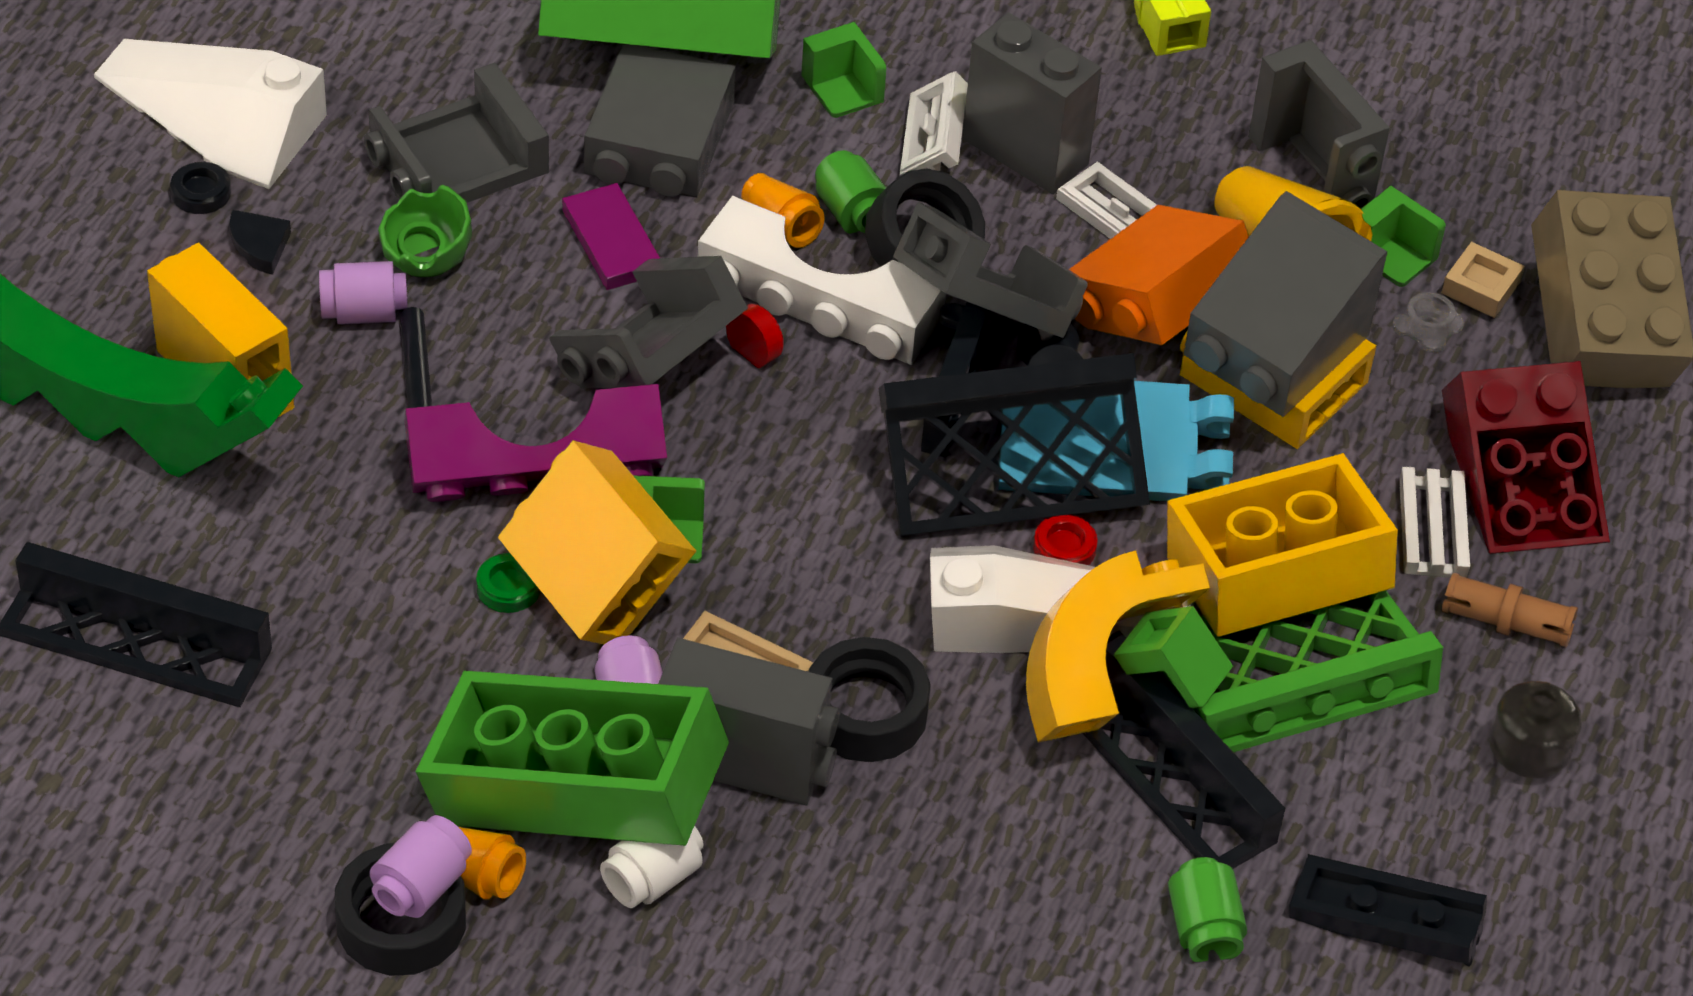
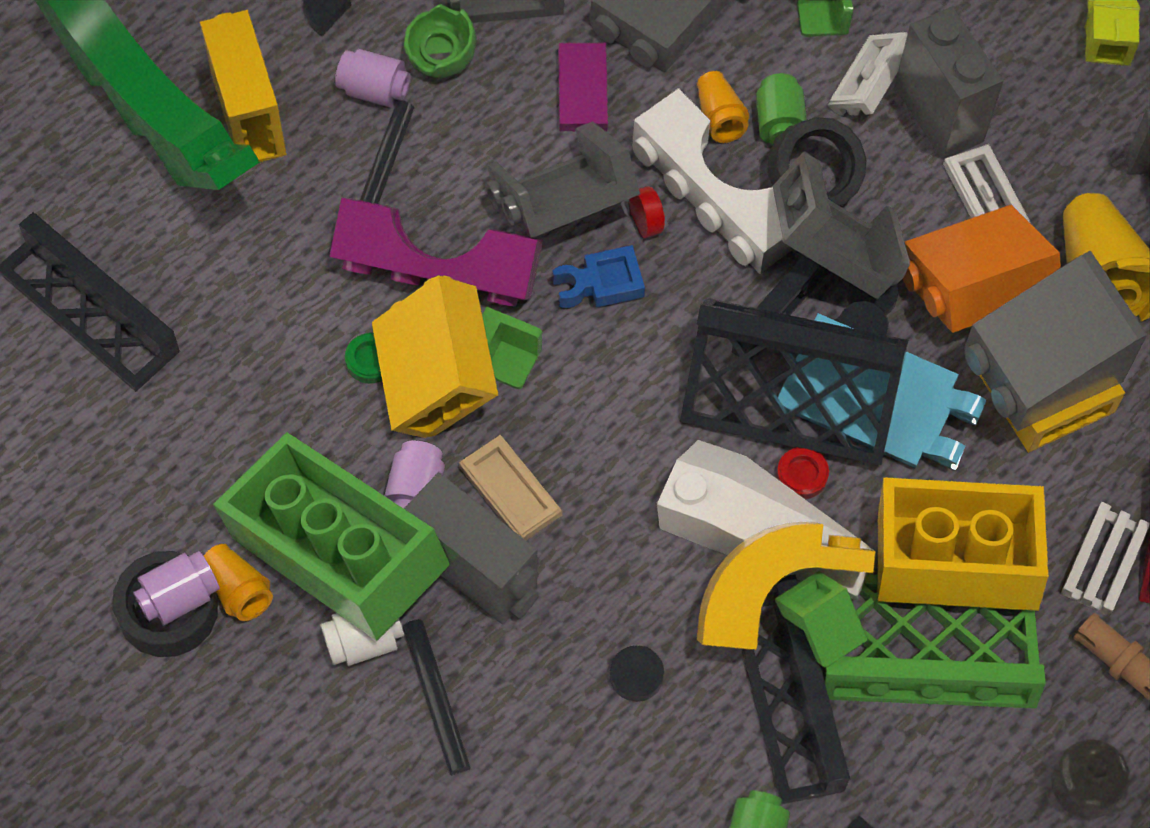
camera: 25 degrees right, 15 degrees up
(741, 413) = (607, 275): none -> blue plate
(772, 903) = (436, 697): none -> black bar
(893, 663) = (588, 517): black tyre -> none
(987, 800) = (636, 673): none -> black tile

